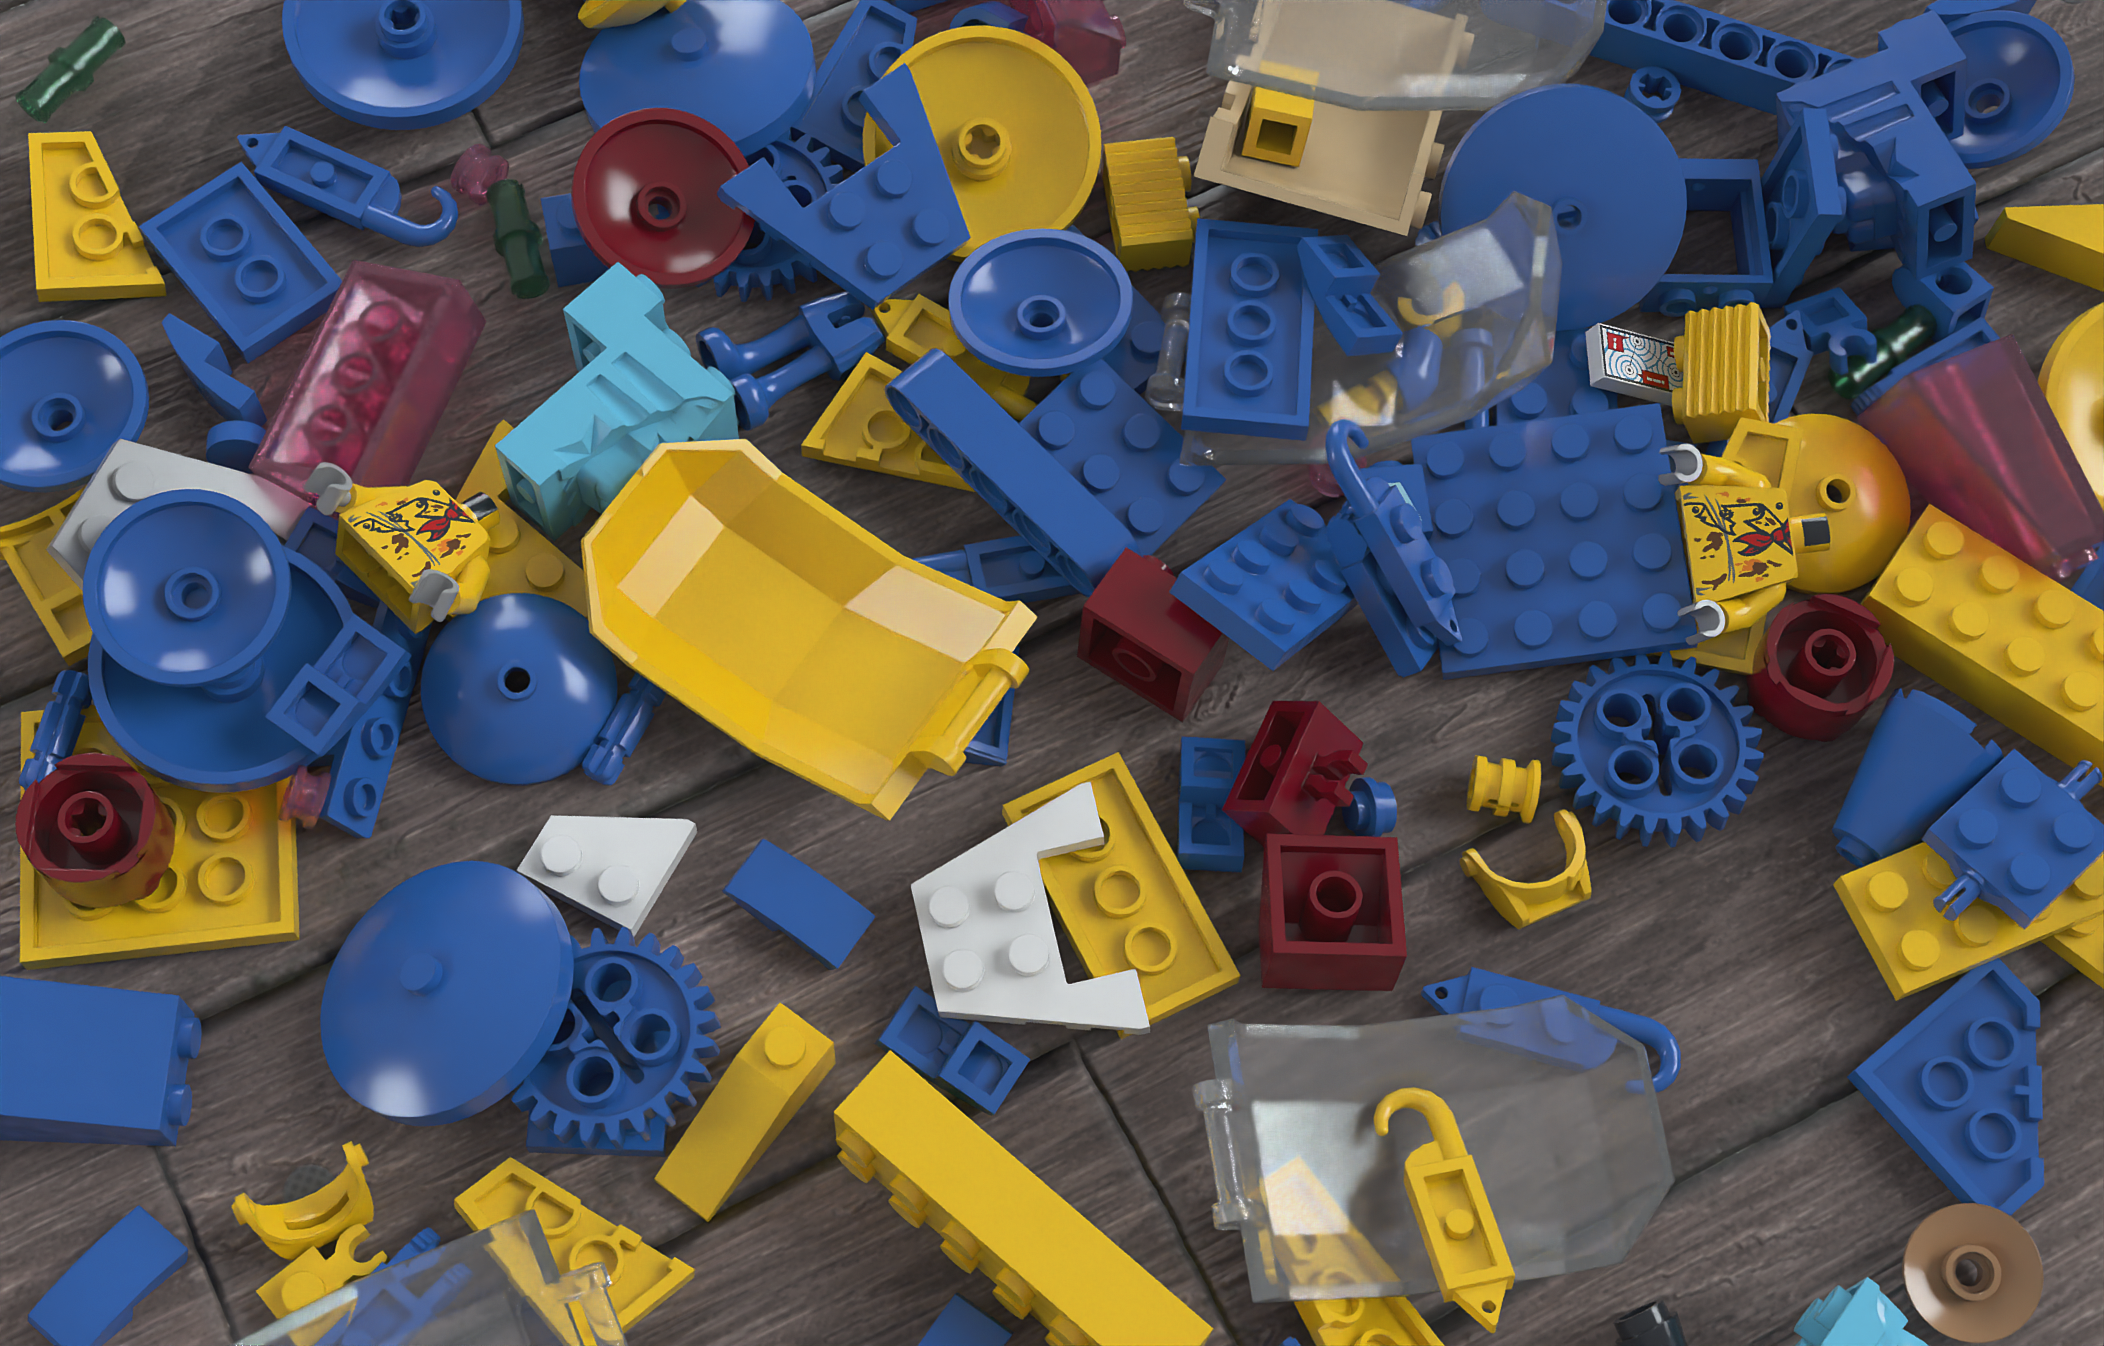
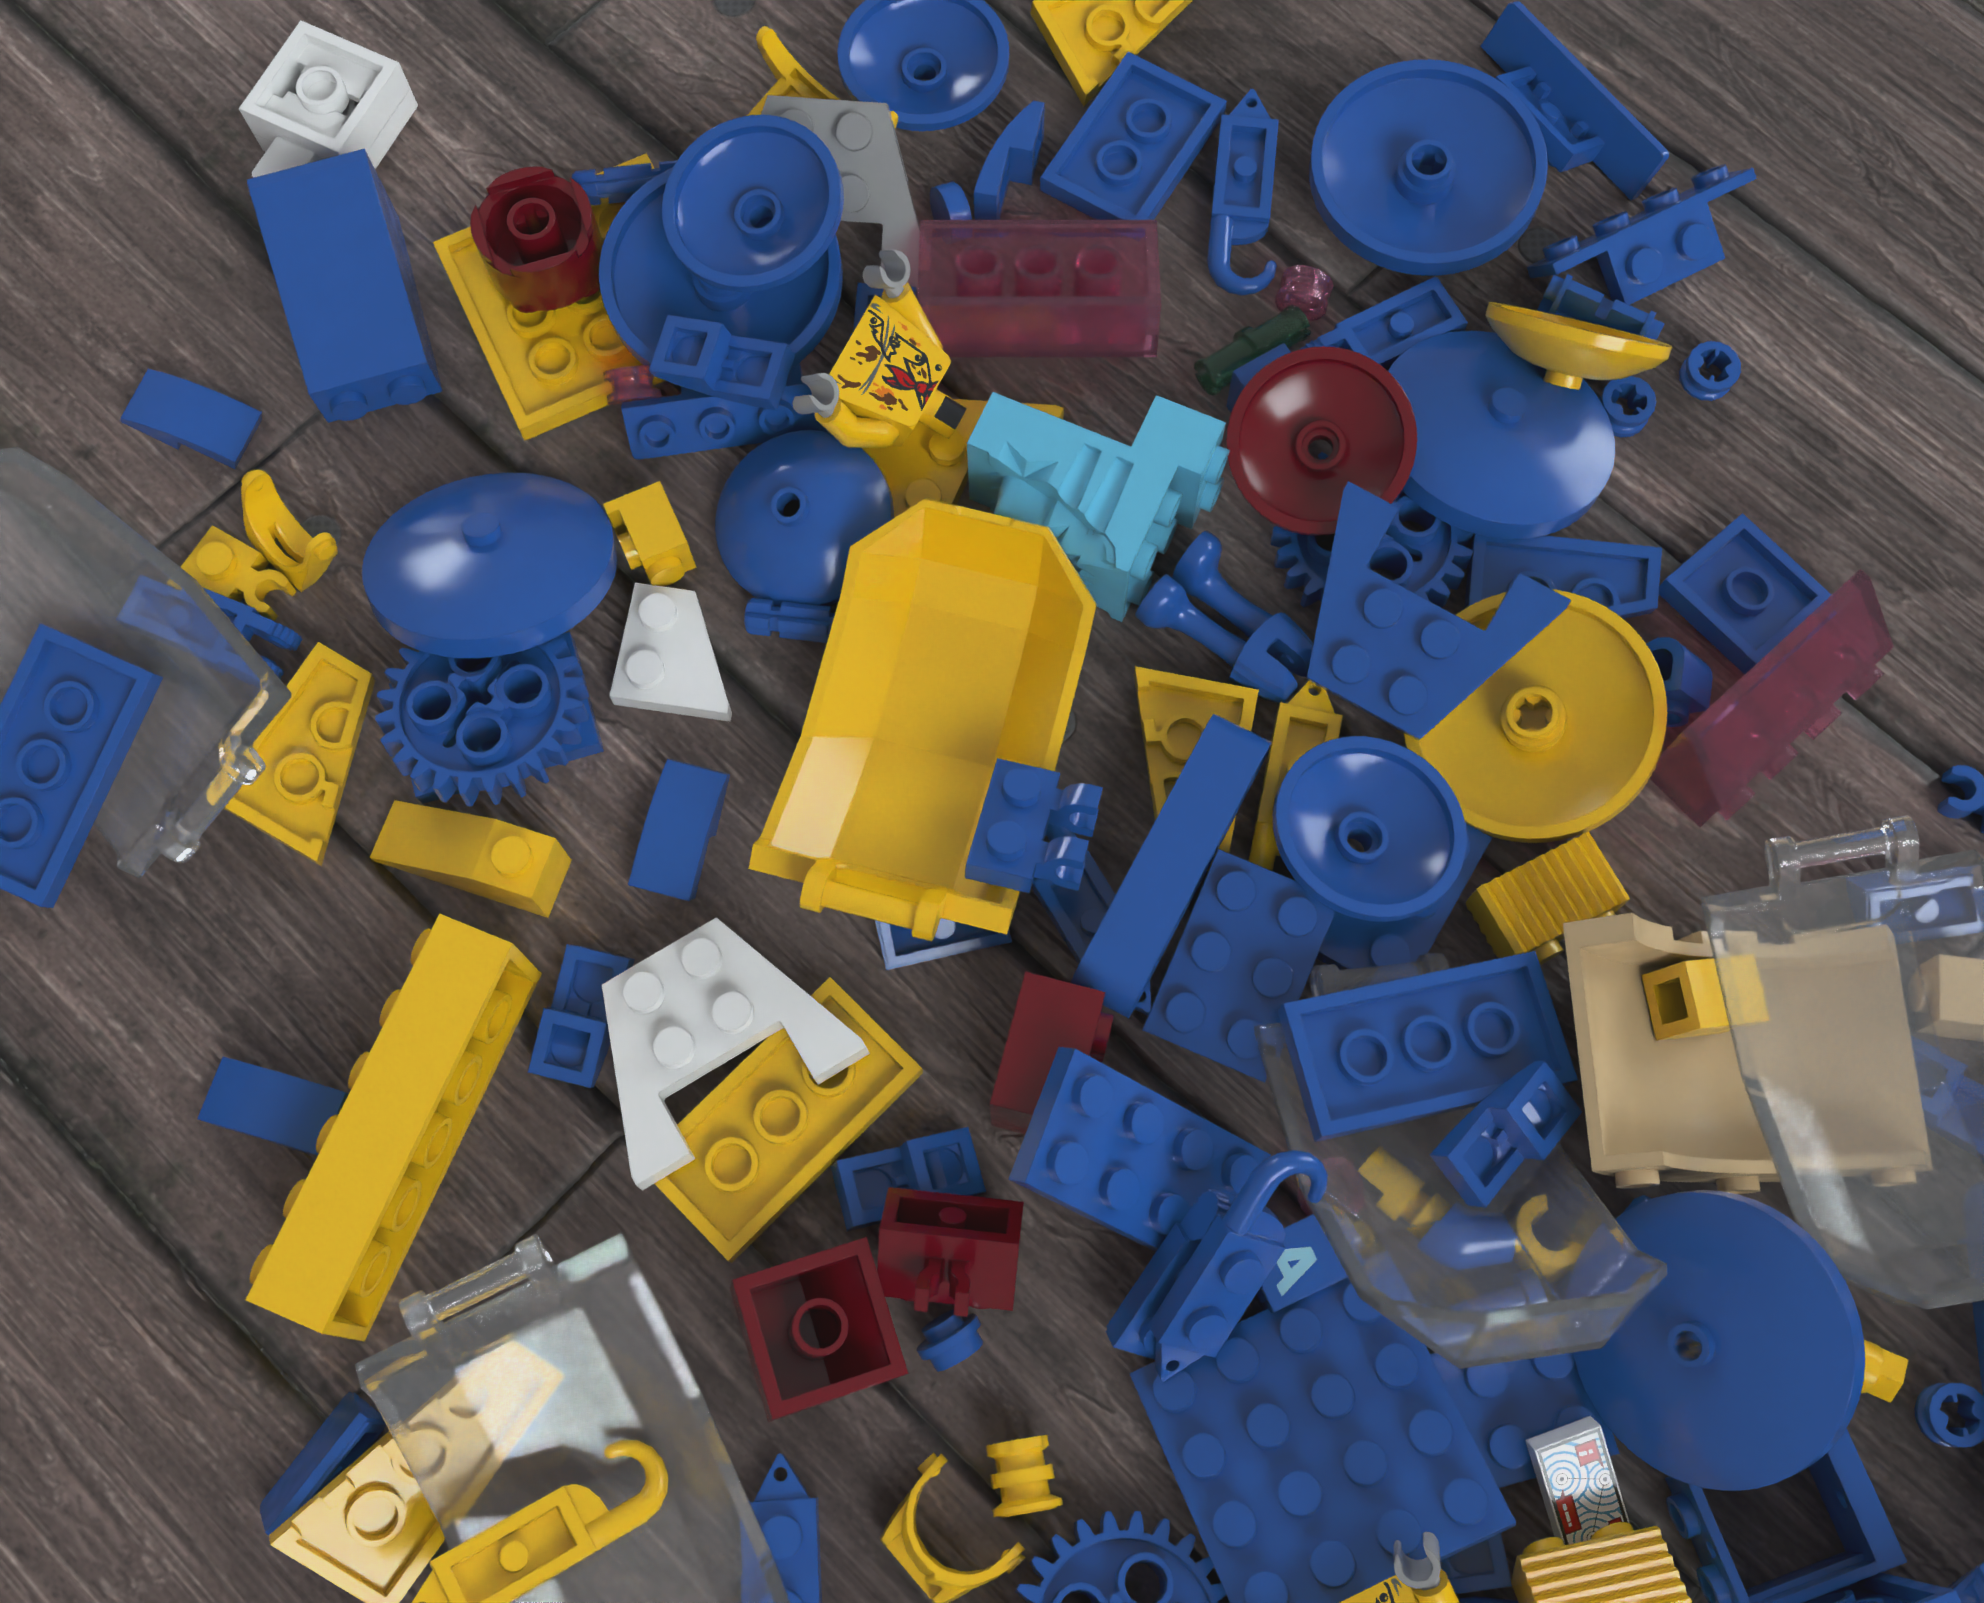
camera: 80 degrees right, 5 degrees up
(476, 830) = (651, 534): none -> yellow brick
(552, 116) = (1397, 323): none -> blue hinge
(933, 584) = (1013, 825): none -> blue plate

